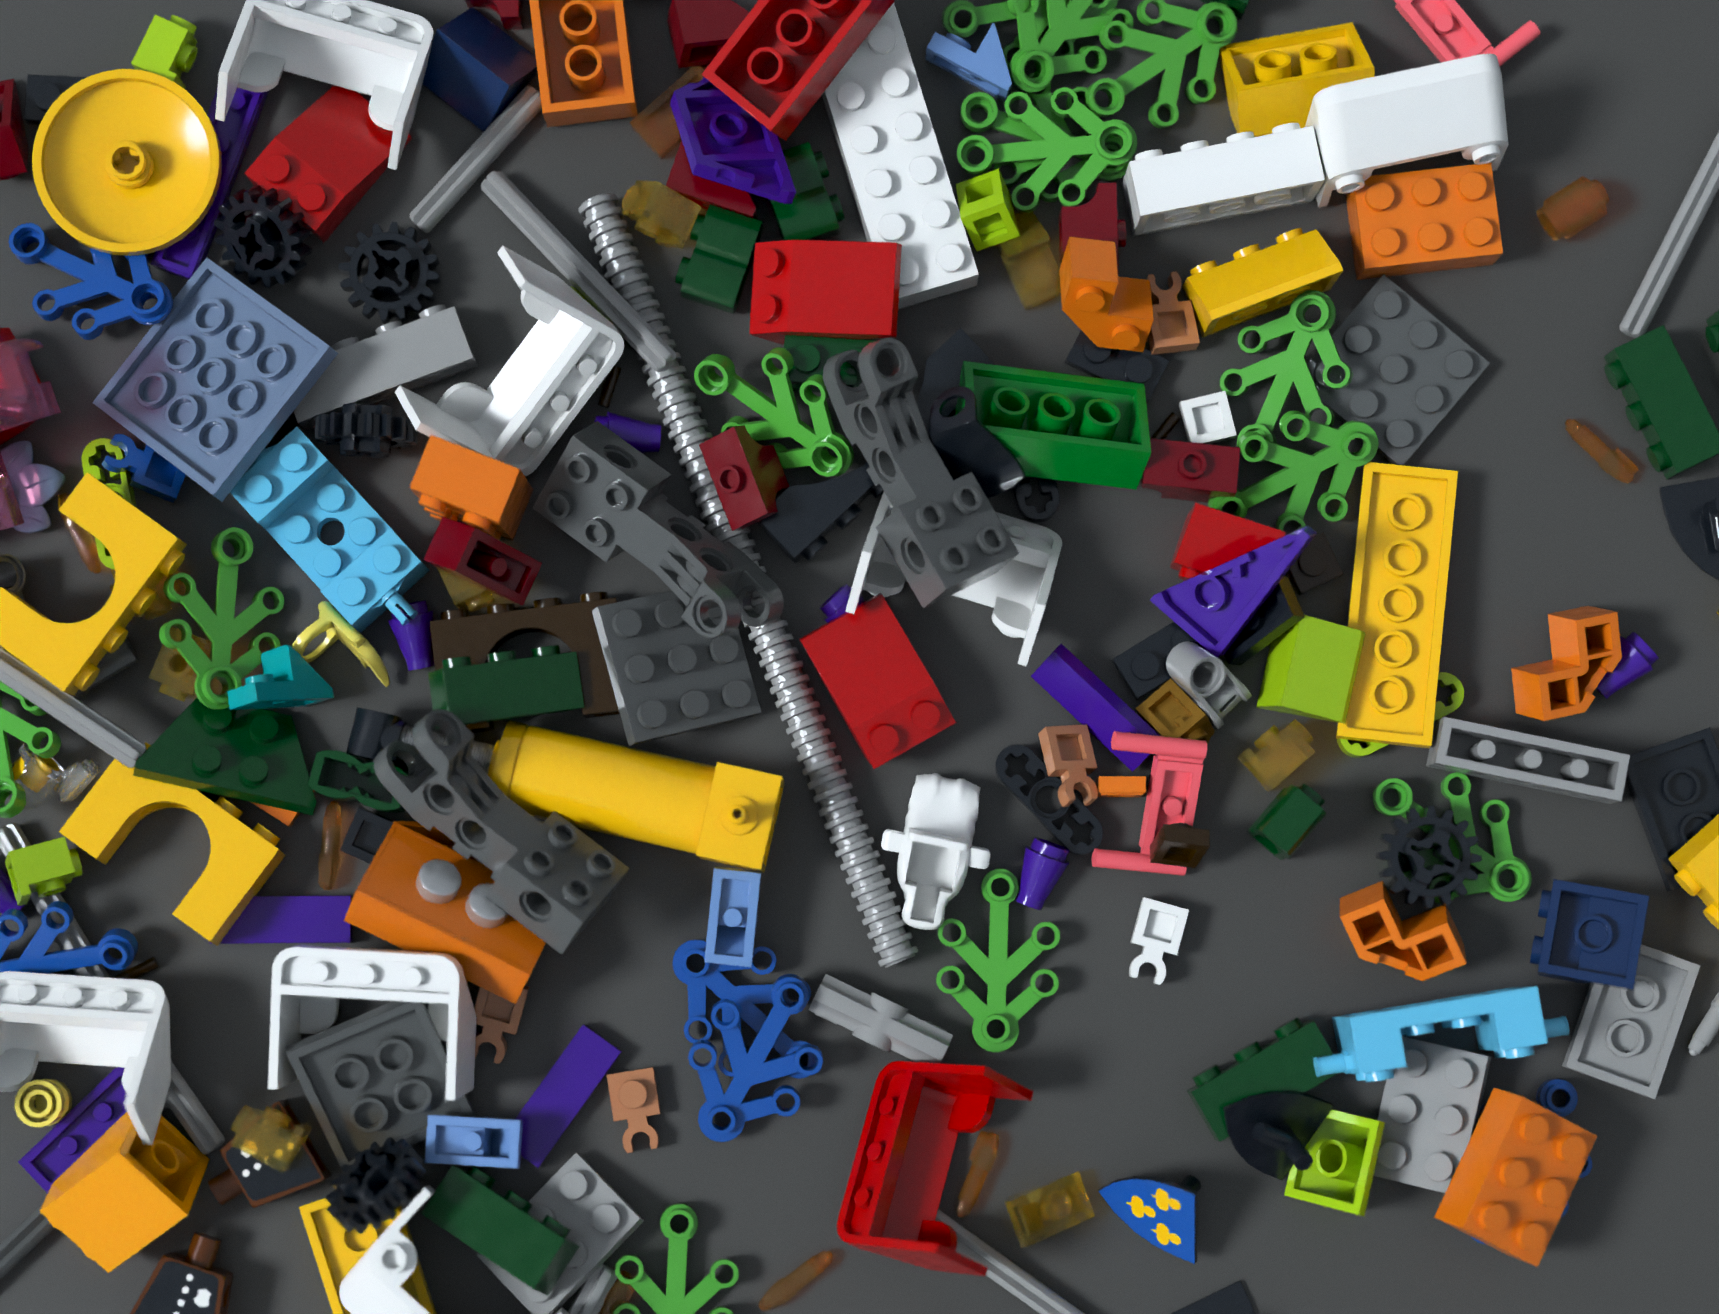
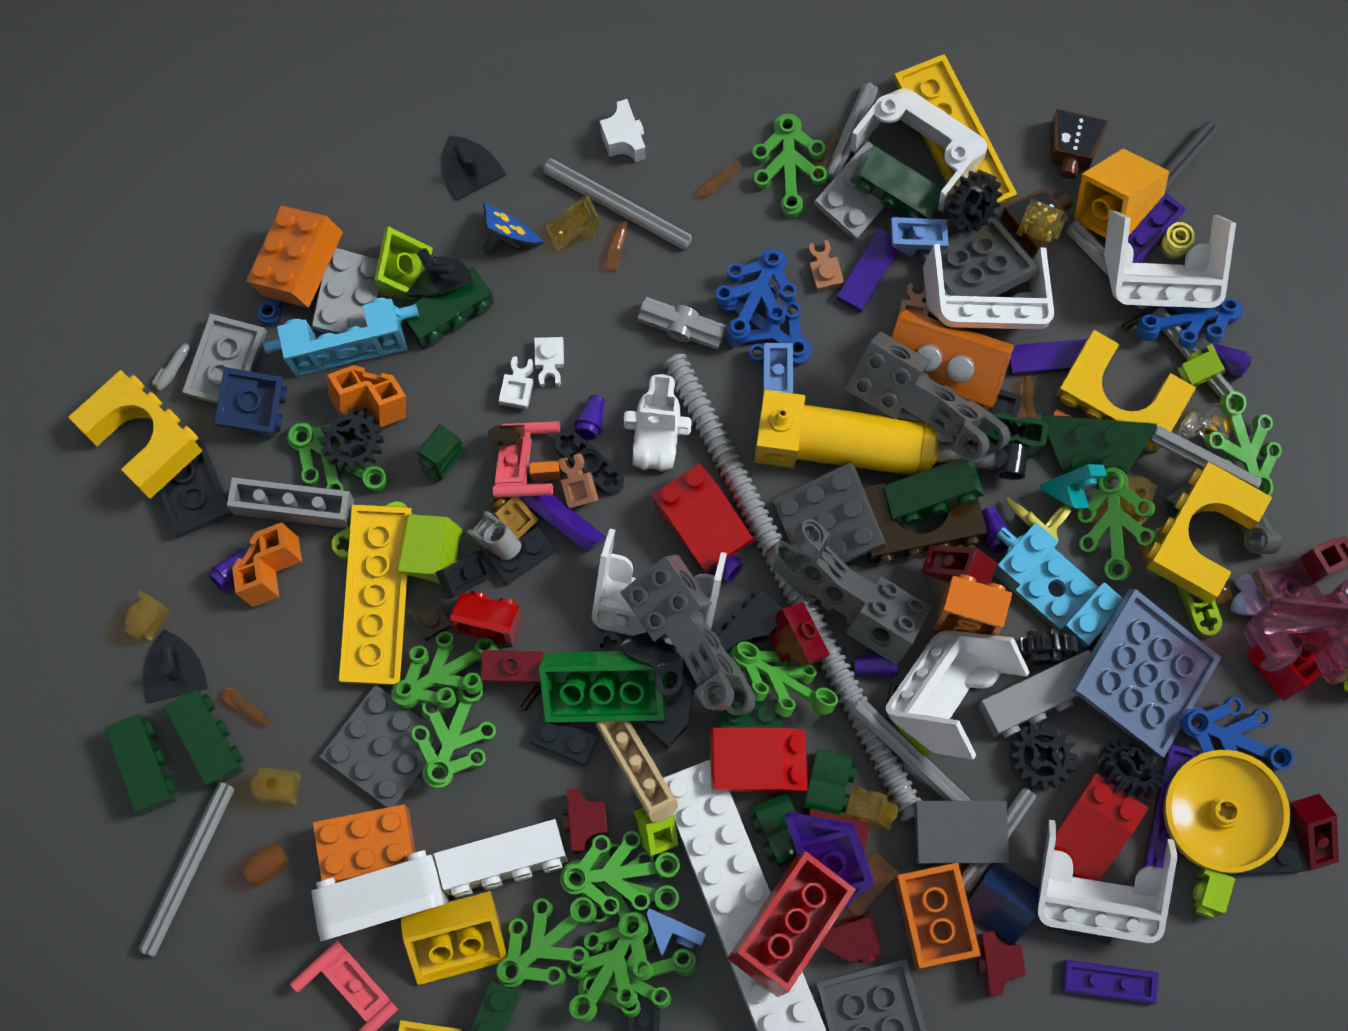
camera: 175 degrees right, 10 degrees down
(150, 469) = (1180, 614): blue plate -> none
(530, 164) = (961, 832): none -> dark grey tile
(907, 1158) = (661, 238): red windscreen -> none
(997, 969) = (613, 360): bright green plant -> none
(1008, 290) = (639, 769): none -> tan brick
(1031, 262) = (622, 801): clear yellow slope -> none
(1101, 989) = (549, 356): none -> white plate
(1106, 307) = (574, 768): orange brick -> none
(1174, 321) = (530, 766): nougat plate -> none
(1208, 419) = (502, 704): white plate -> none
(1225, 598) = (485, 584): dark purple wing -> none
(1260, 280) = (472, 795): yellow slope -> none
(1278, 754) = (447, 497): clear yellow brick -> none
(1556, 322) = (276, 786): none -> clear yellow brick

